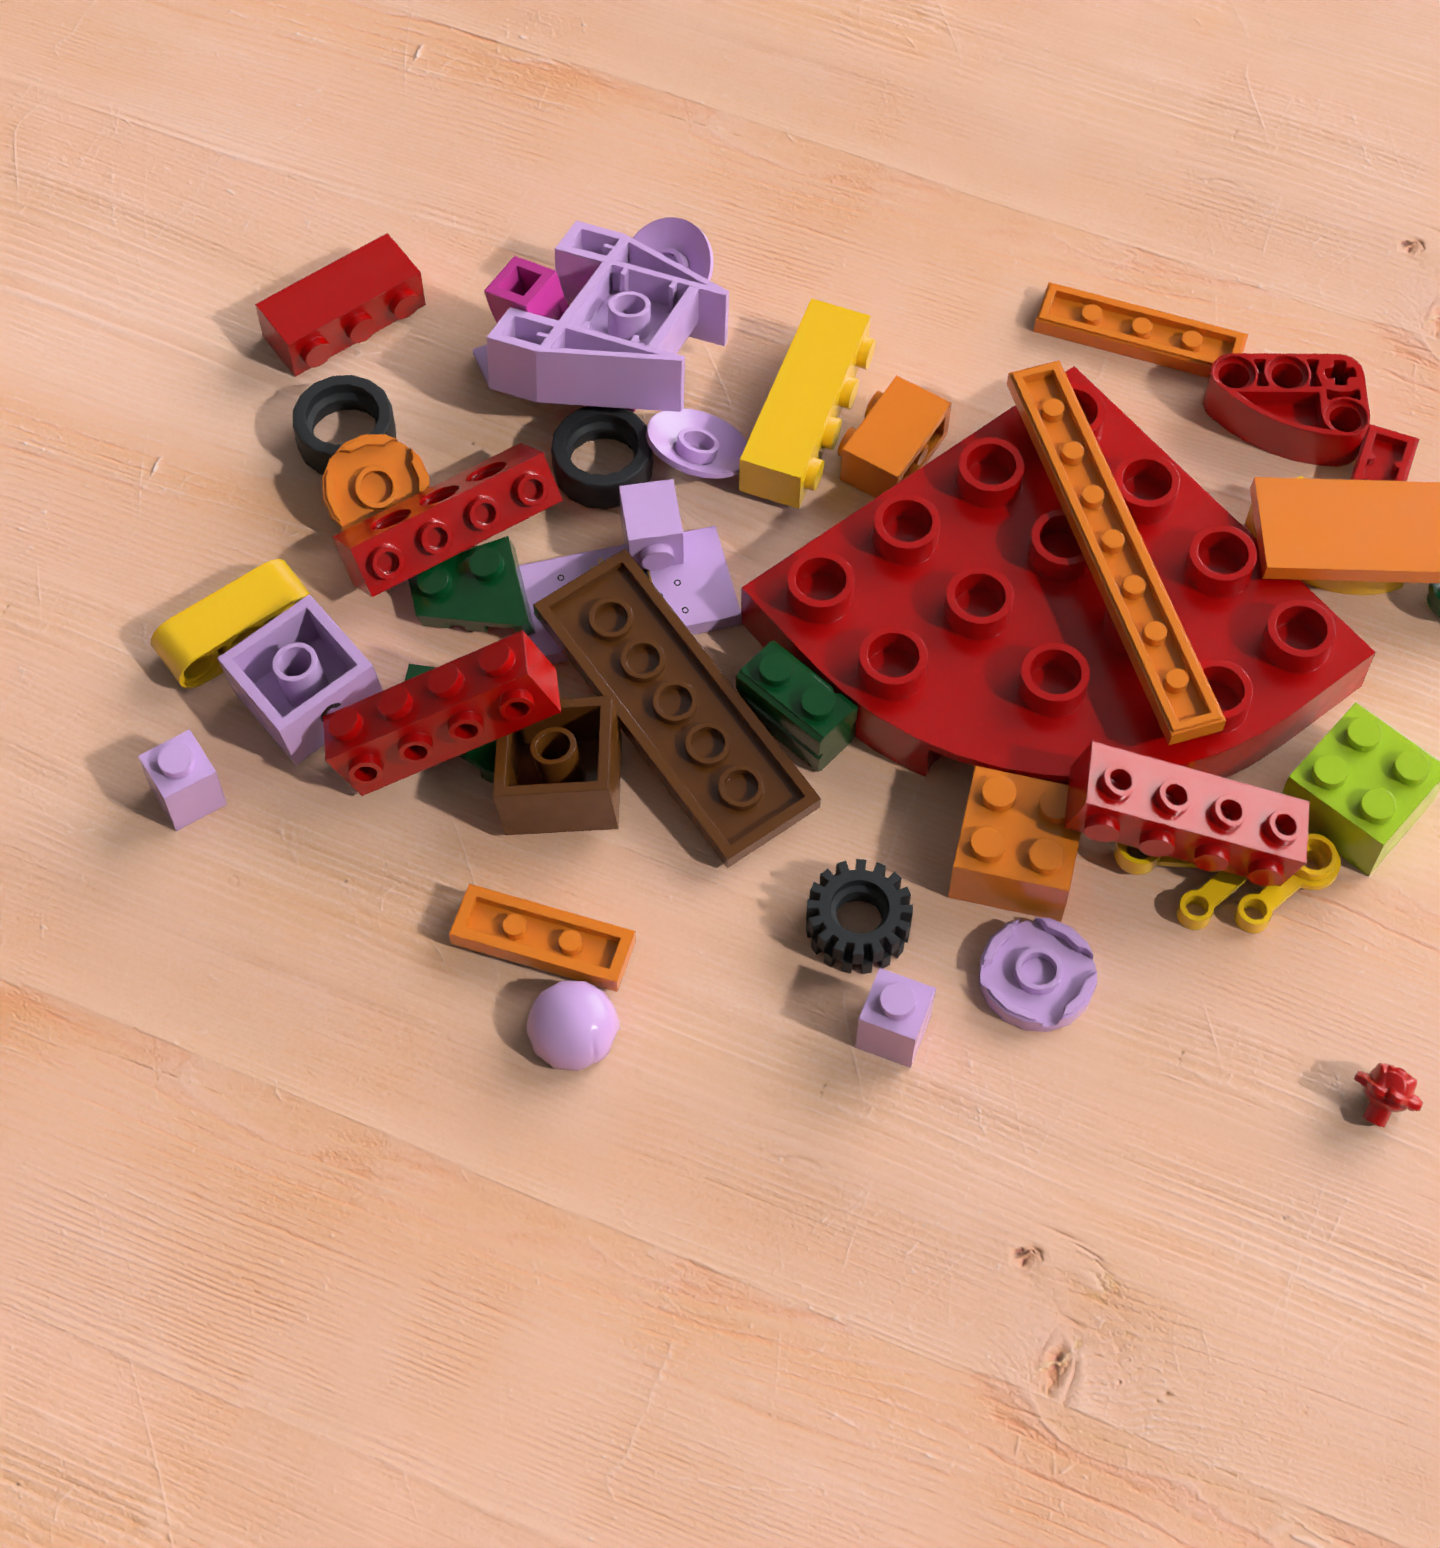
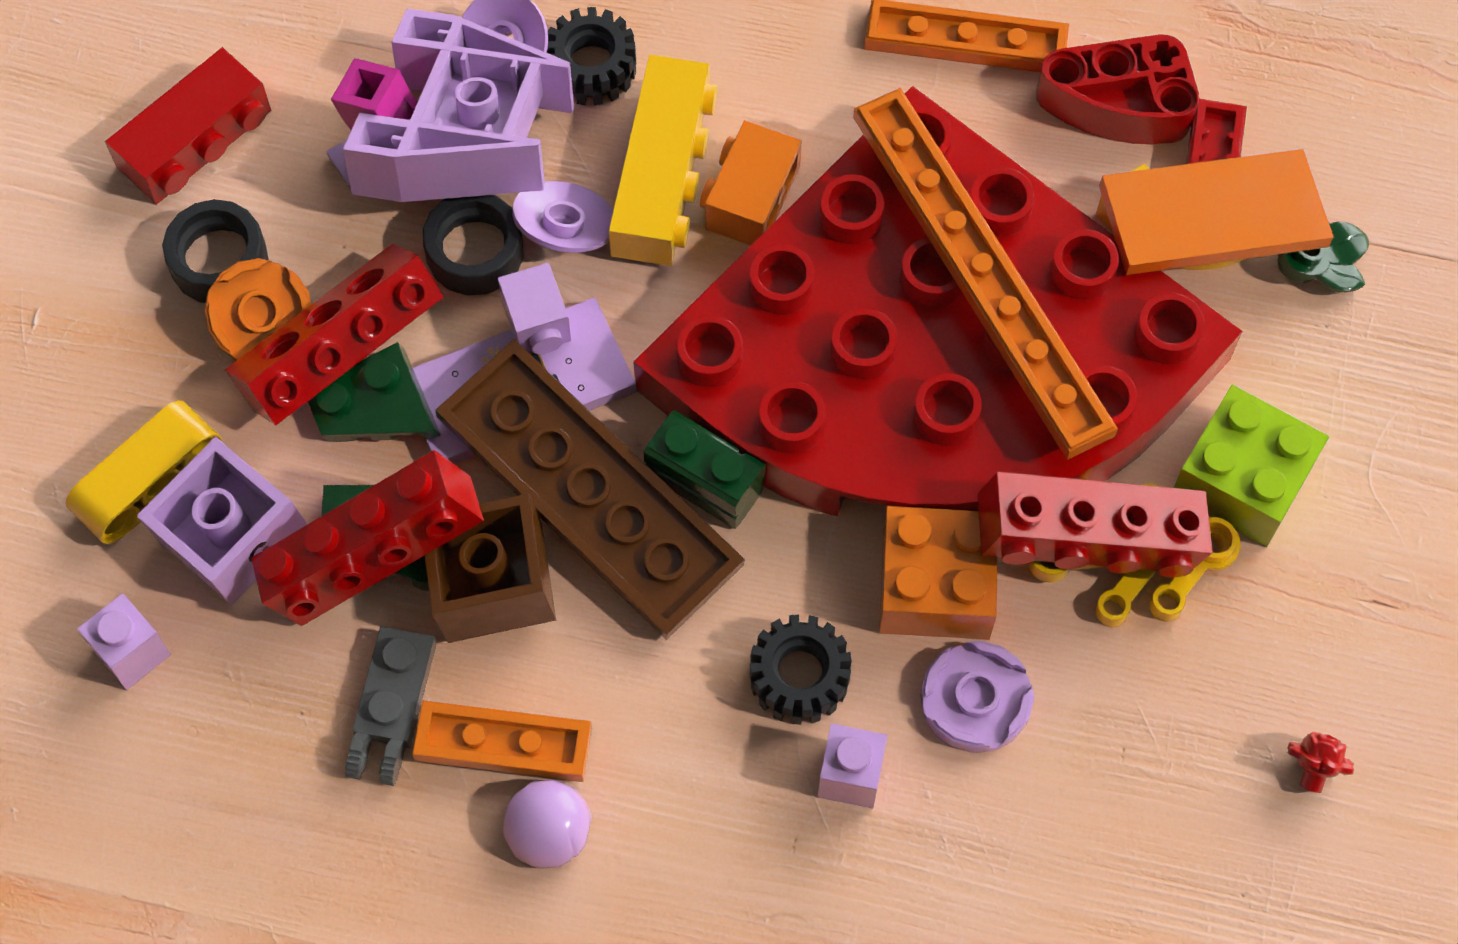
camera: 10 degrees left, 5 degrees up
(437, 882) = (391, 700): none -> dark grey hinge
(760, 274) = (597, 32): none -> black tyre

